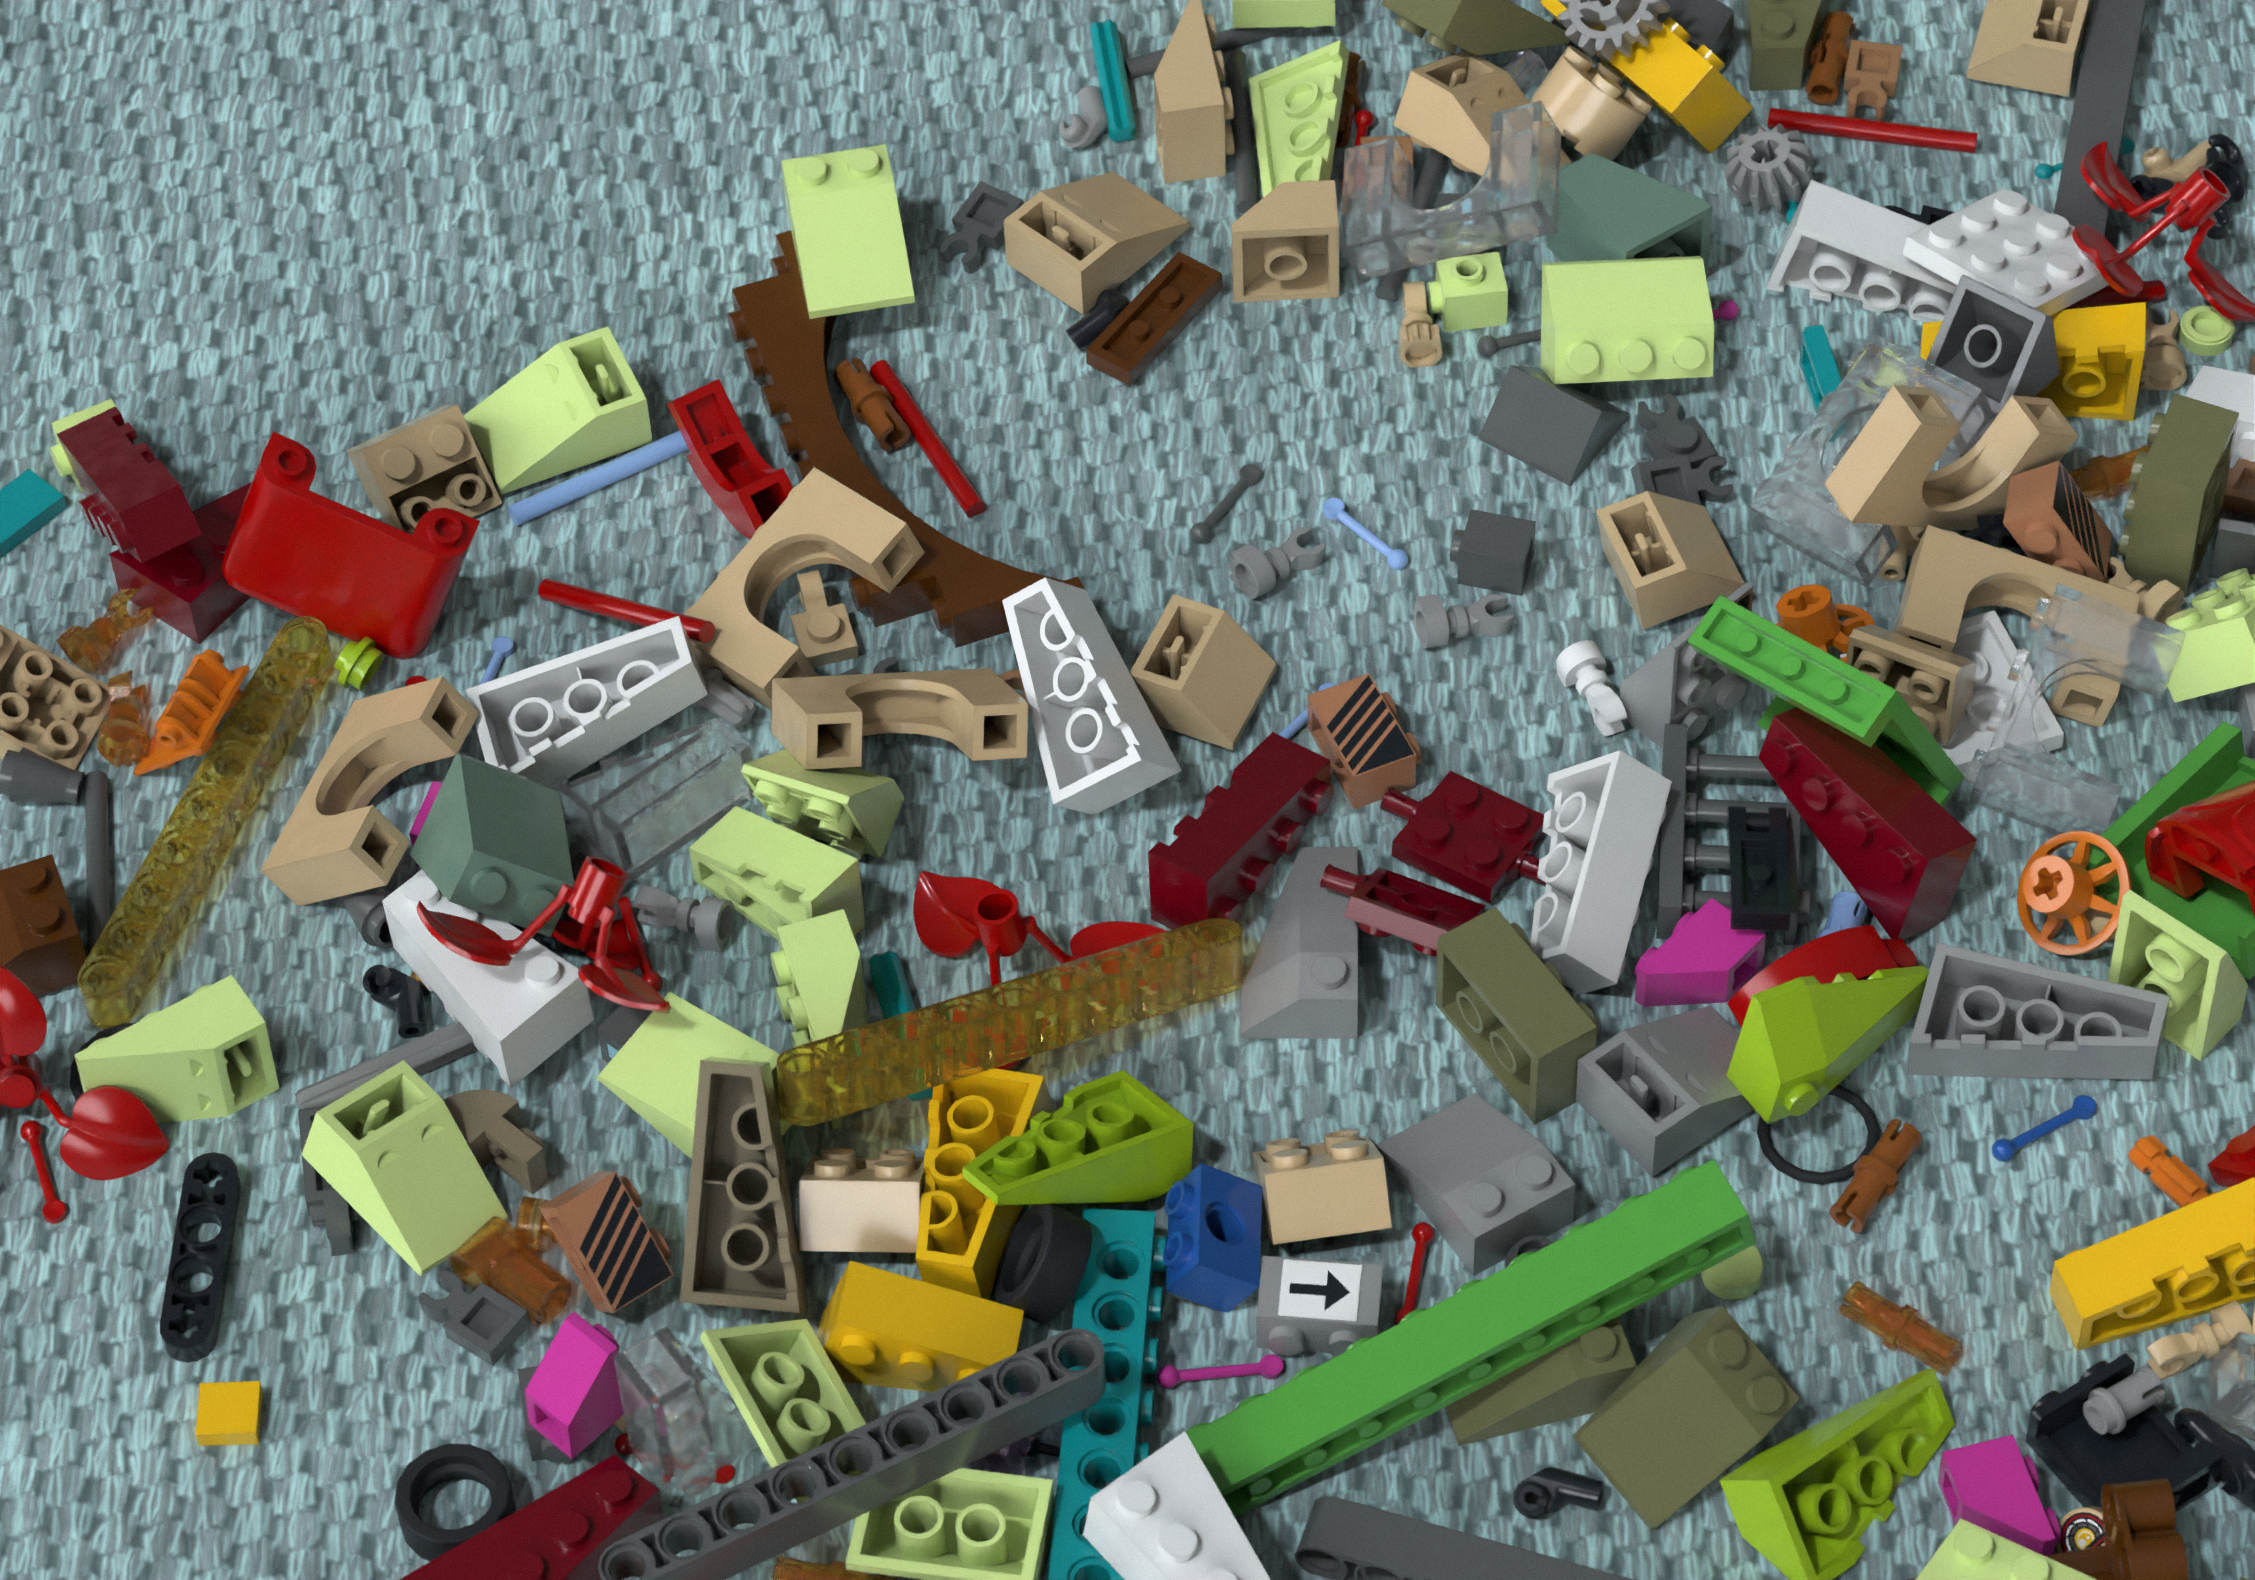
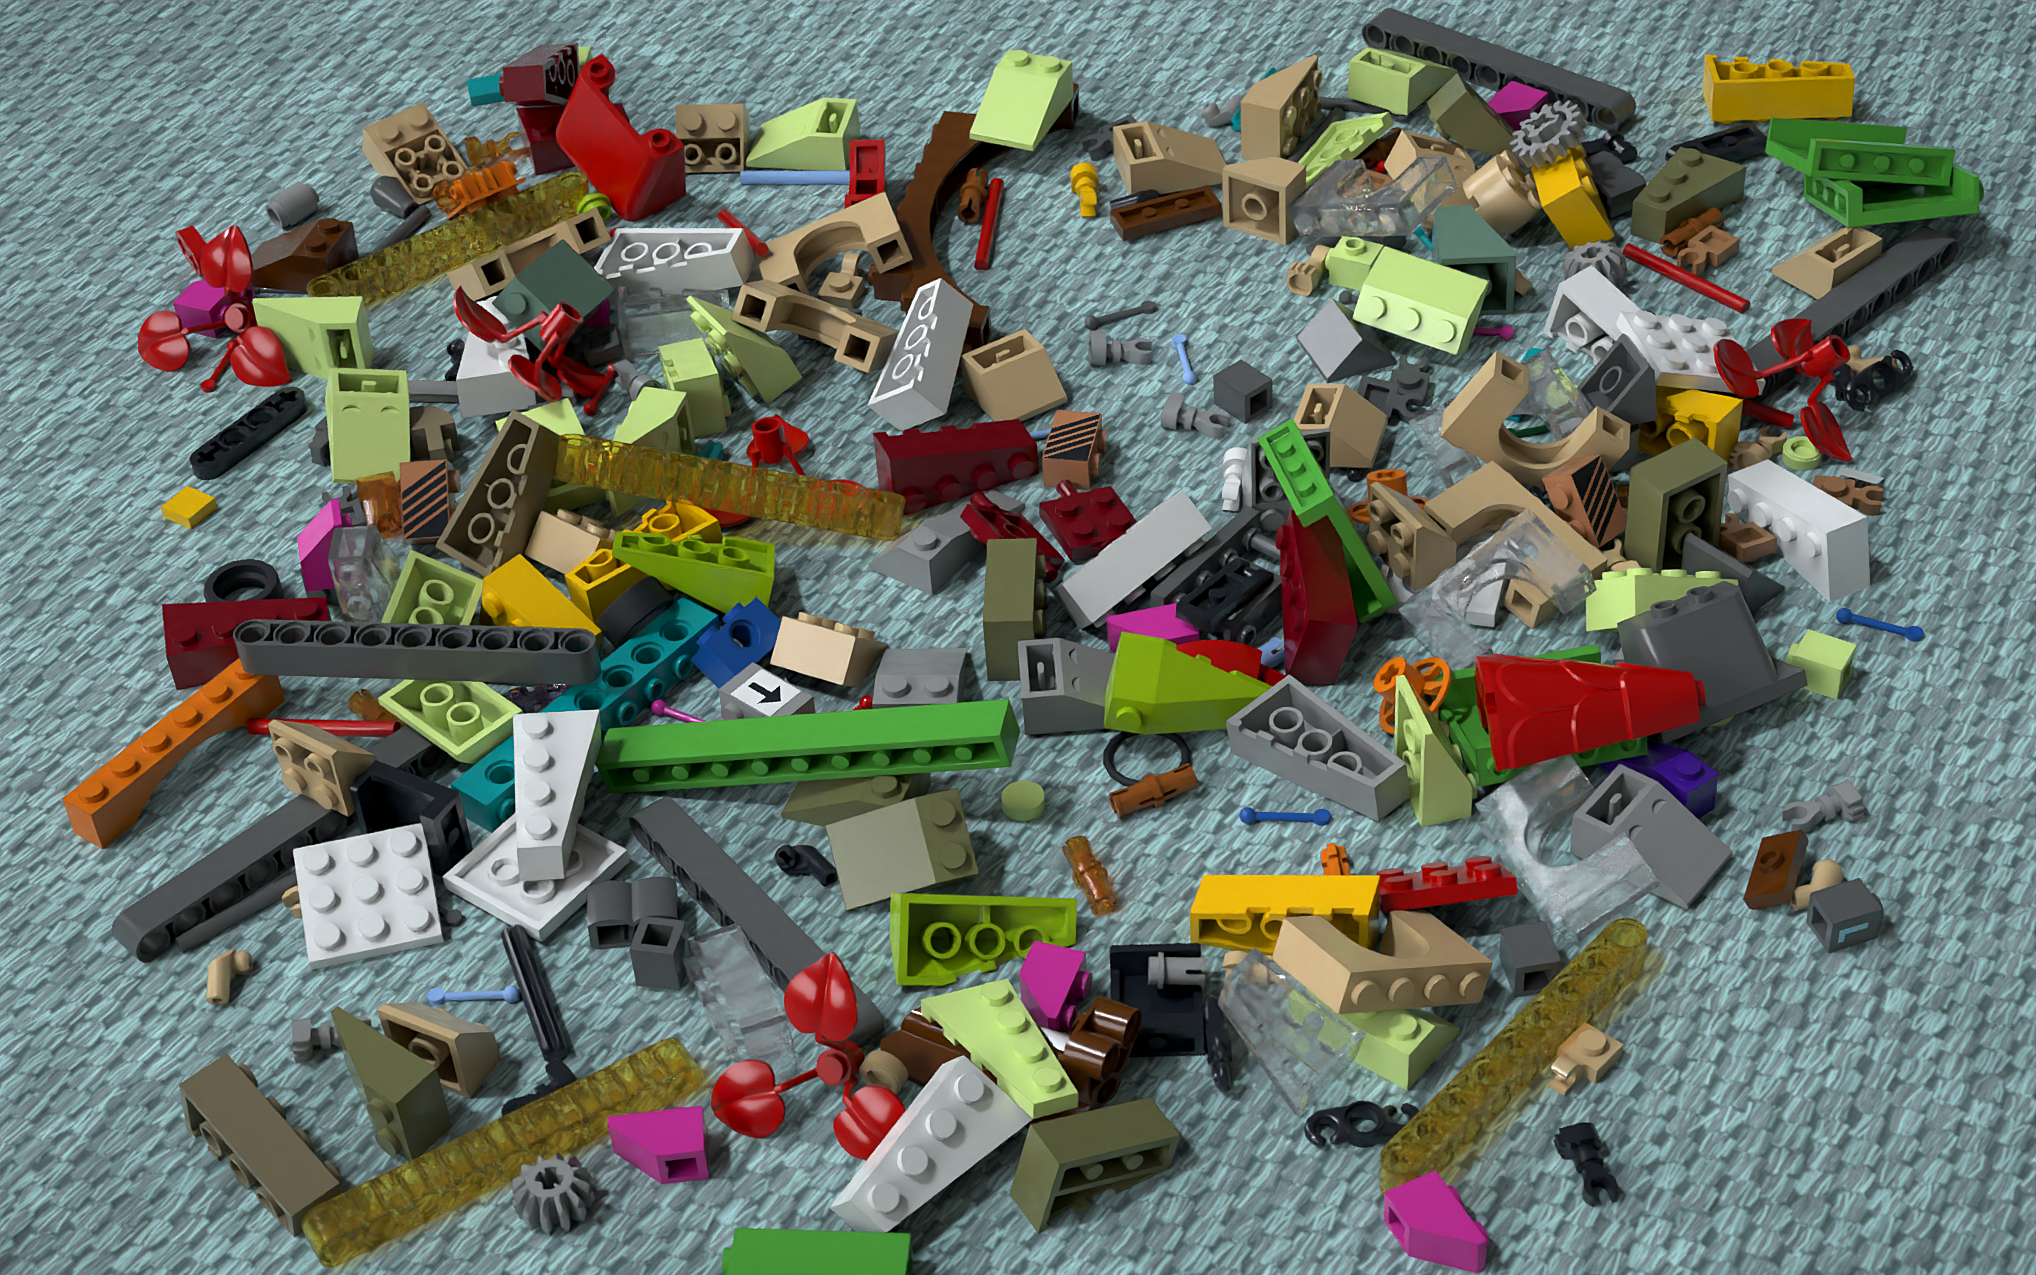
camera: 35 degrees right, 10 degrees down
(1003, 312) = (1085, 184): none -> yellow piece

